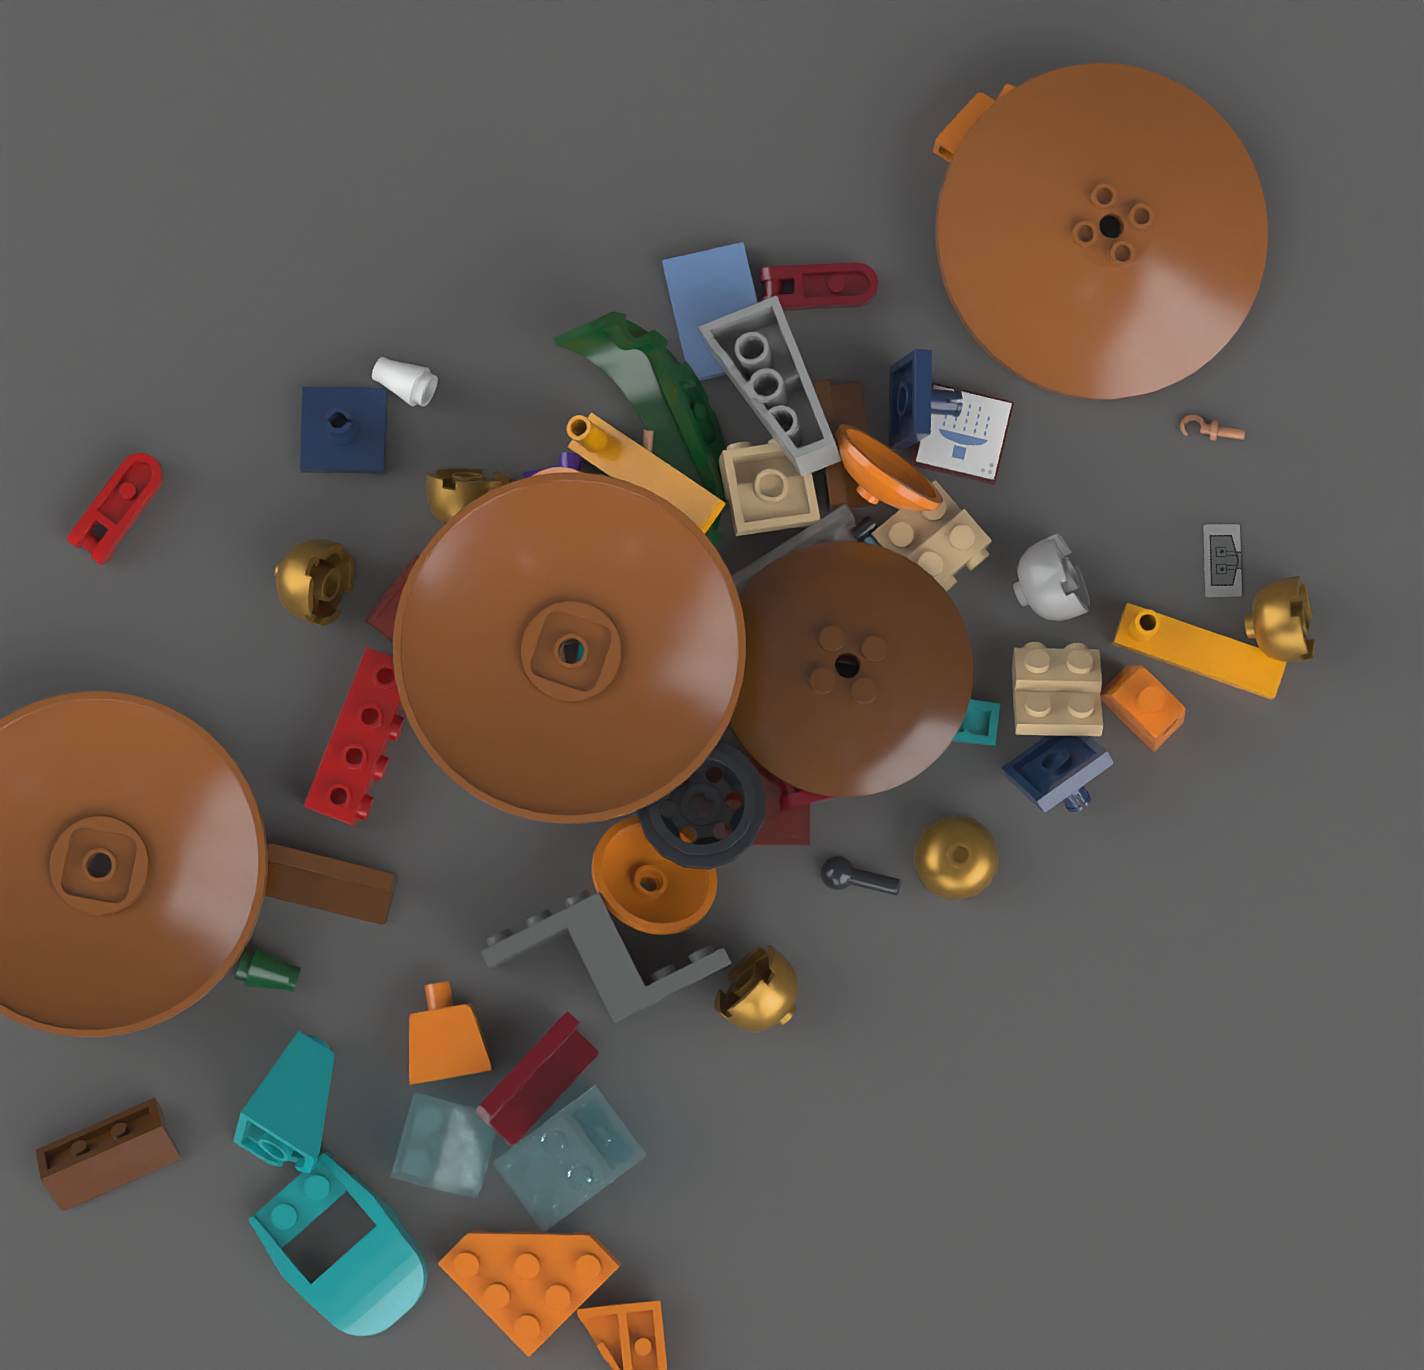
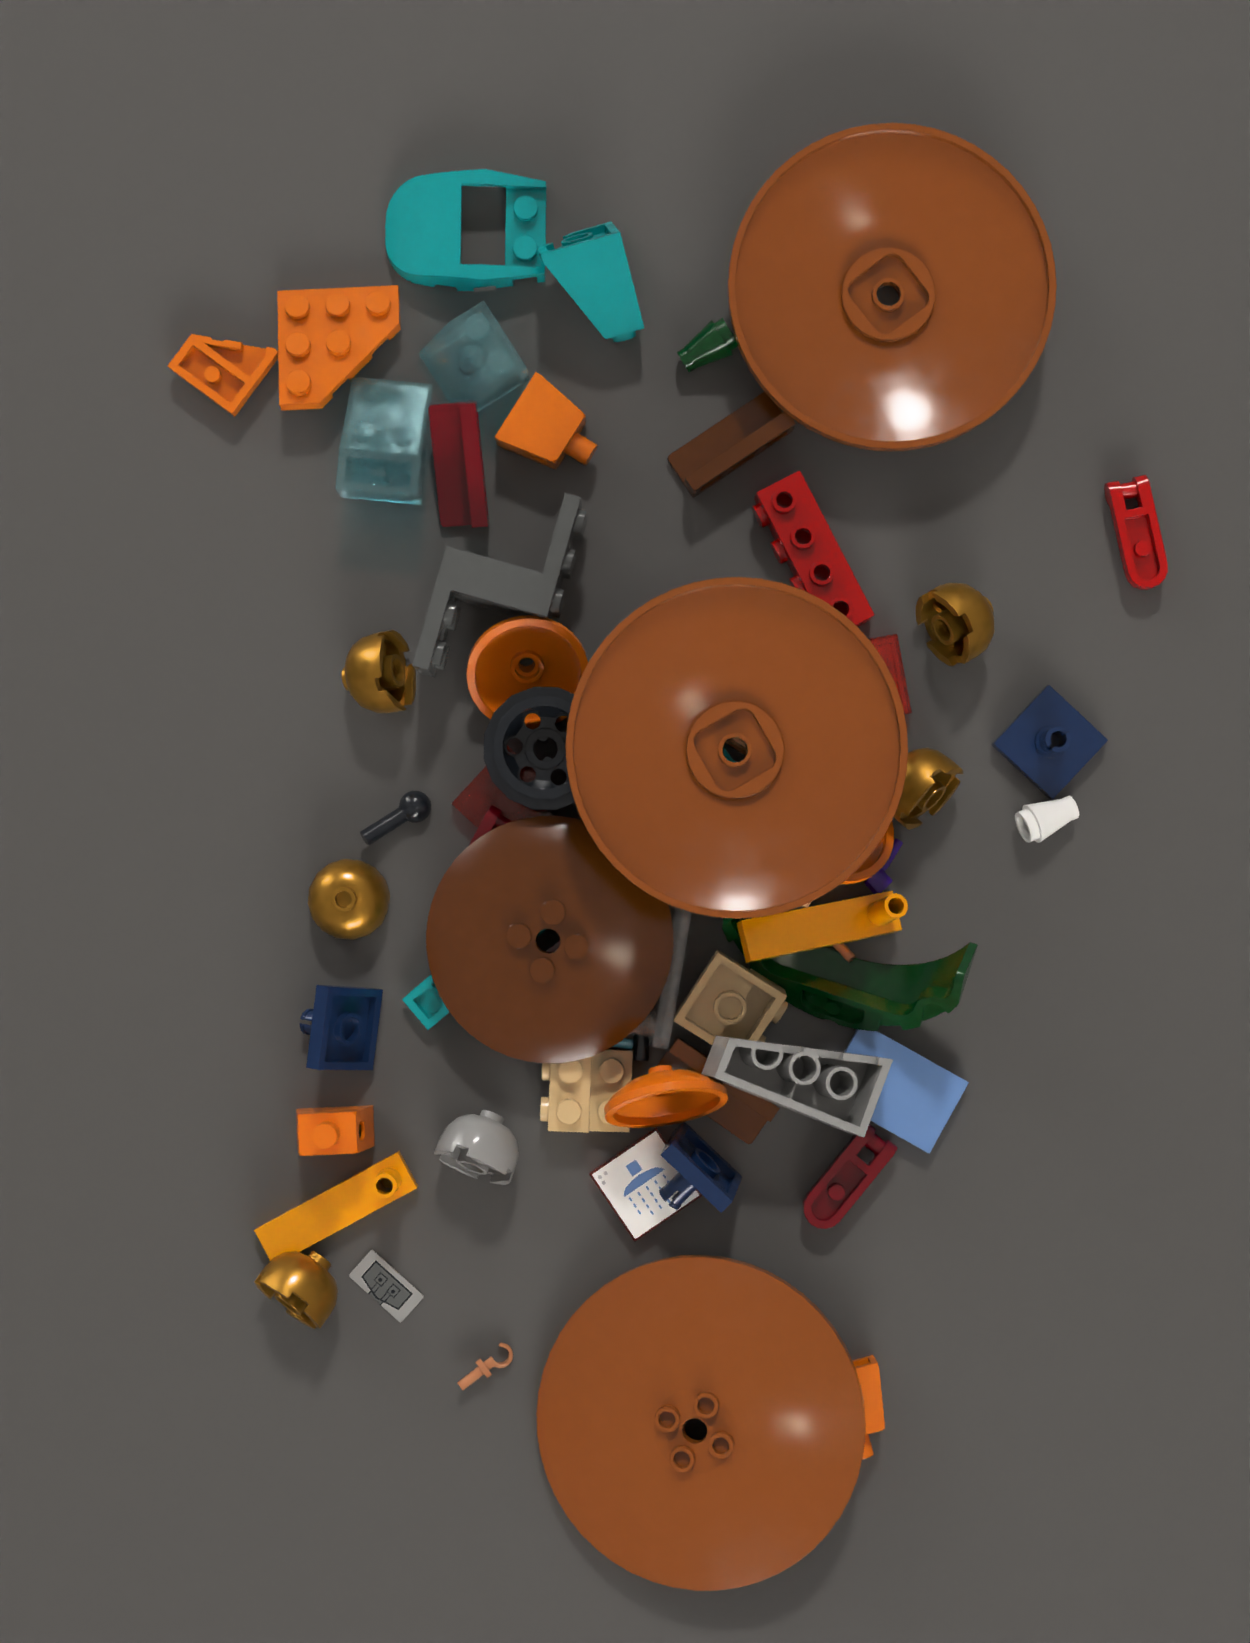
camera: 135 degrees right, 5 degrees up
(106, 1155) = (680, 125): reddish brown panel -> none
(1057, 690) = (398, 1078): tan plate -> none

